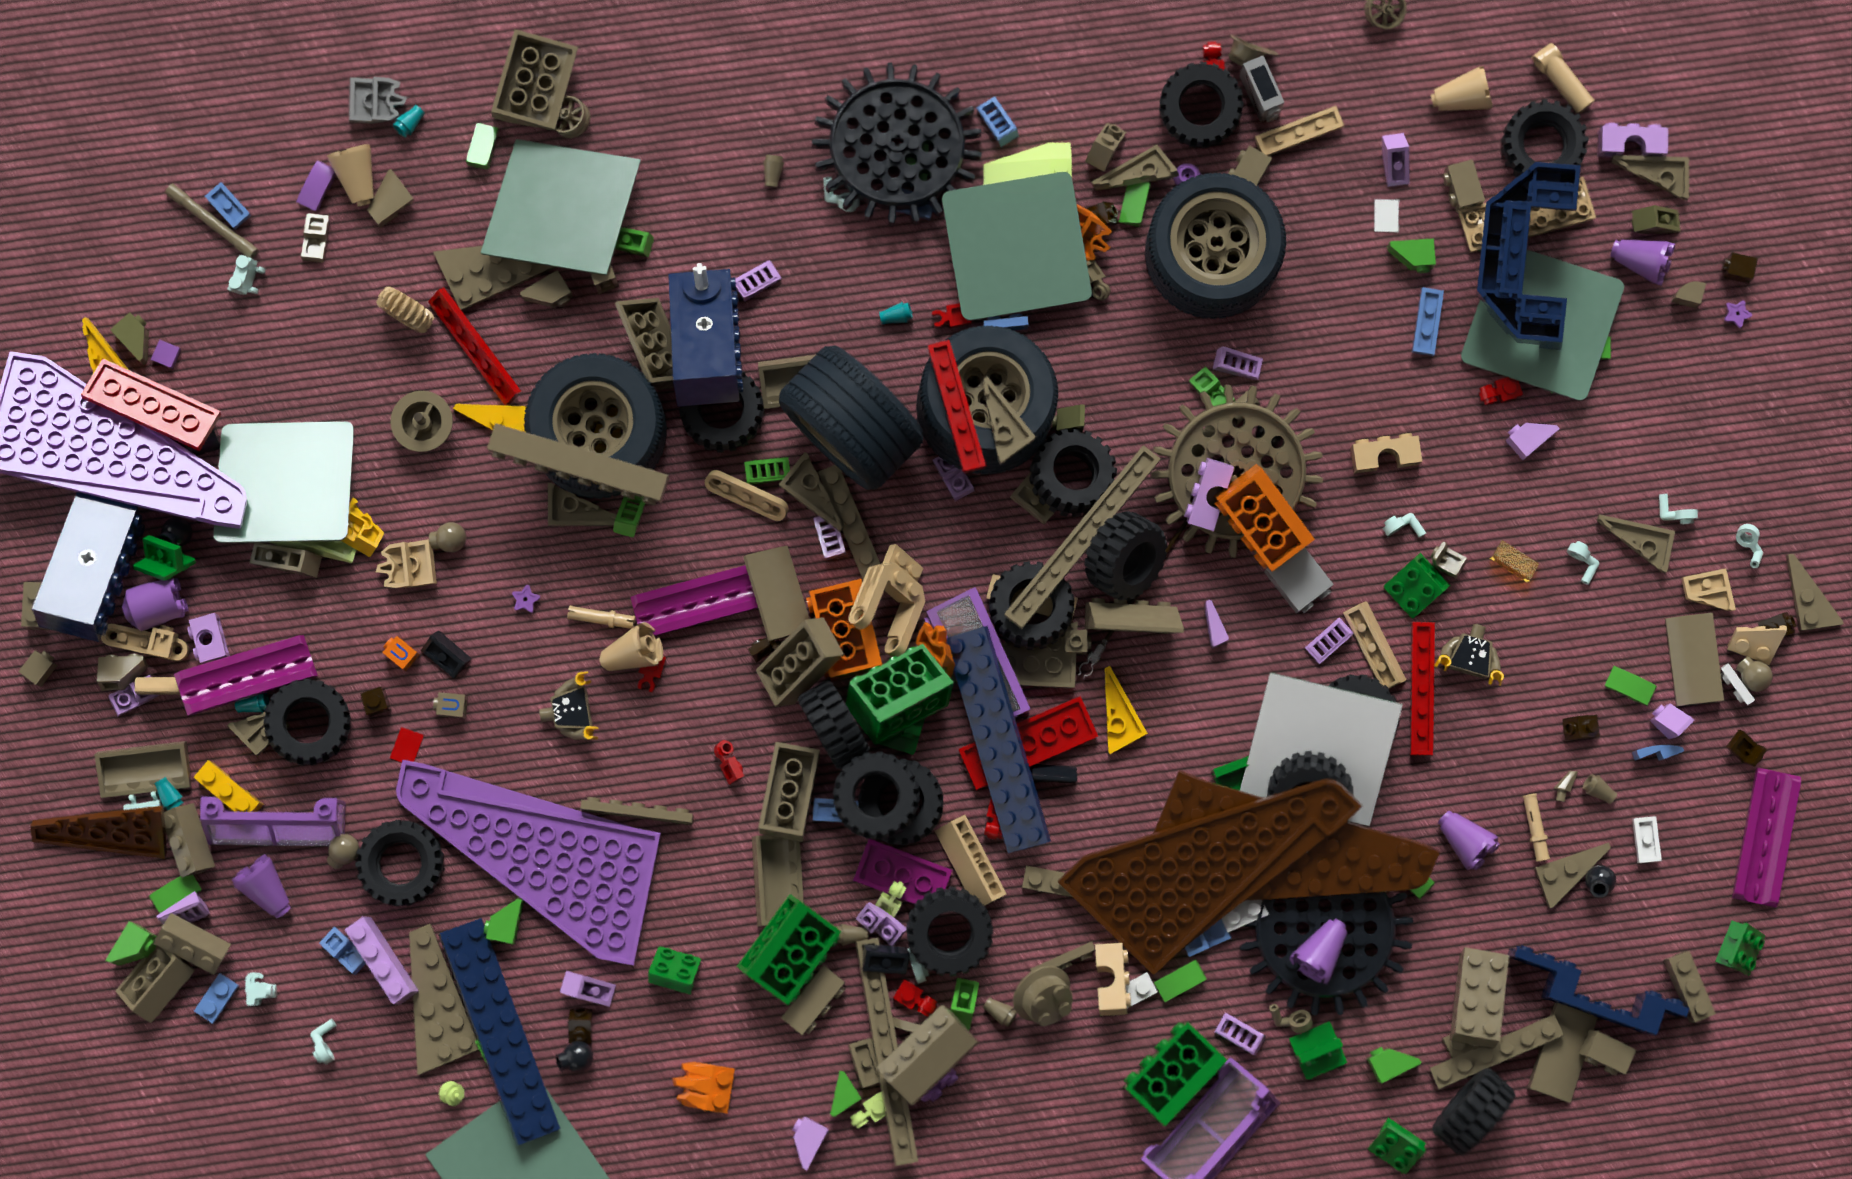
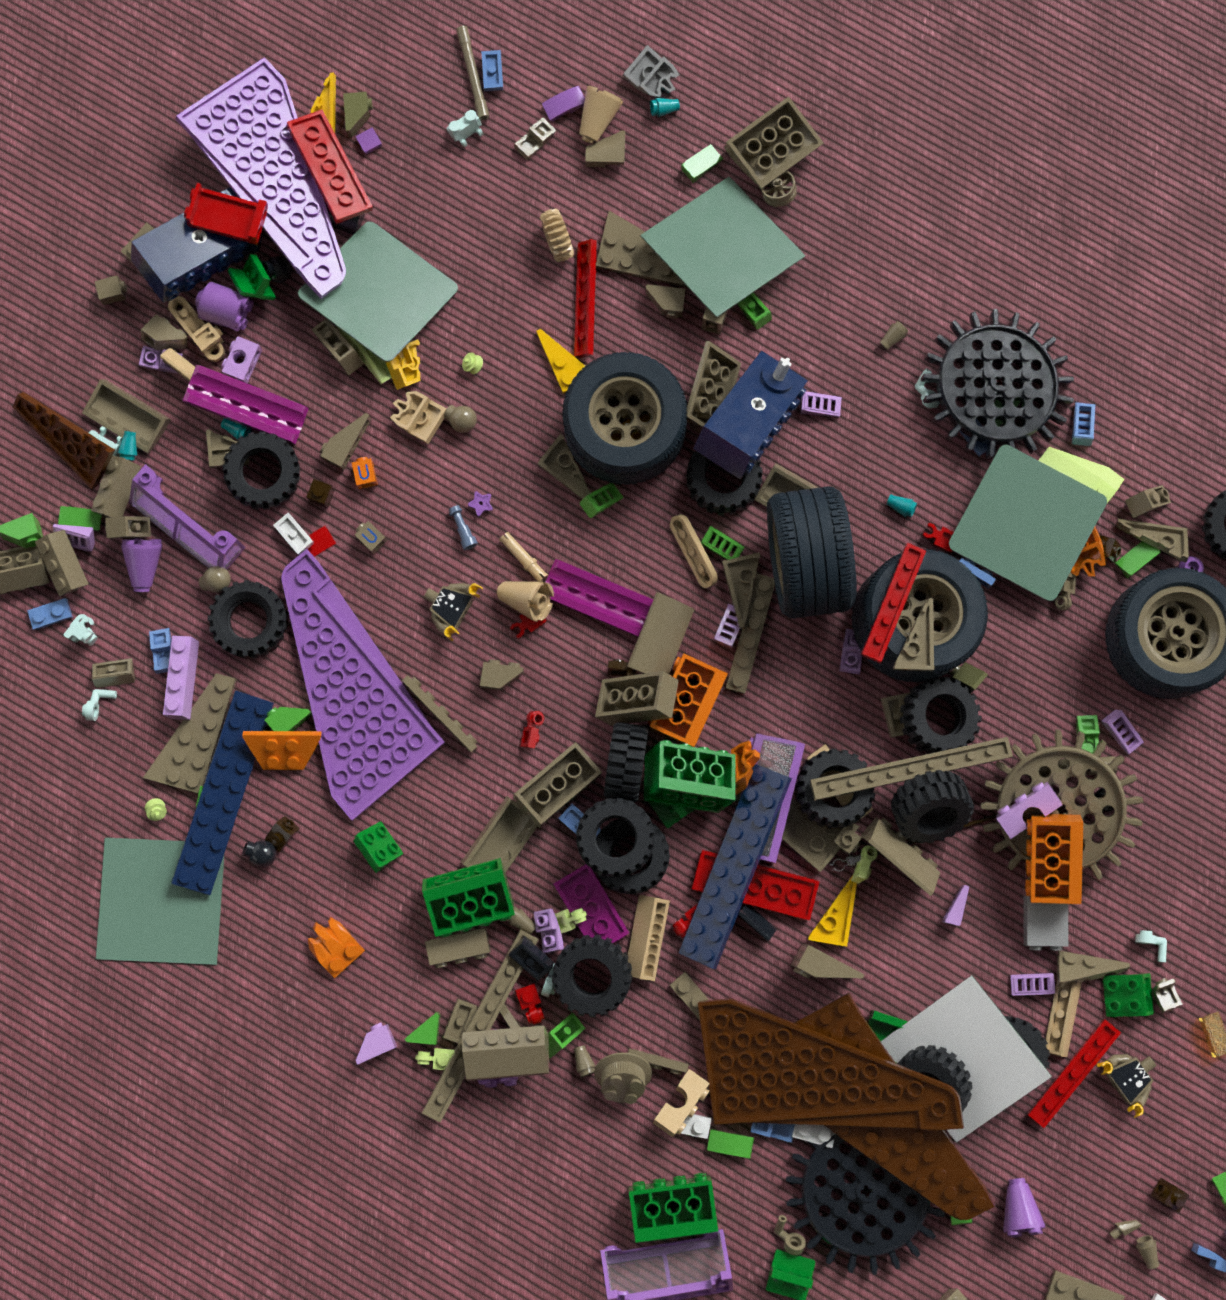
camera: 45 degrees right, 0 degrees up
(96, 519) = (226, 214): none -> red panel
(226, 789) = (169, 473): yellow arch -> none
(227, 865) = (128, 527): none -> dark tan brick
(316, 1005) = (113, 673): none -> dark tan slope
(361, 642) = (343, 444): none -> dark tan slope
(380, 756) = (293, 533): none -> white plate
(419, 481) = (472, 363): none -> yellowish green wheel
(421, 421) = (506, 321): dark tan piece -> none
(445, 654) = (395, 498): black slope -> none
(522, 951) = (282, 748): none -> orange wing
(540, 640) = (468, 540): none -> sand blue piece
(578, 463) = (589, 433): dark tan brick -> none
(587, 988) = (307, 811): lavender slope -> none
(662, 738) = (499, 676): none -> dark tan slope
(899, 578) = (755, 695): tan plate -> none
(1109, 657) = (862, 868): none -> yellowish green plate
(1130, 767) = (815, 963): none -> dark tan slope
(1256, 1045) = (750, 1234): lavender slope -> none
(1320, 952) = (849, 1207): medium lavender cone -> none
(1359, 593) = (1082, 967): none -> dark tan wing
(1405, 450) = (1197, 890): tan arch -> none
(1536, 827) = (1079, 1241): tan pin -> none

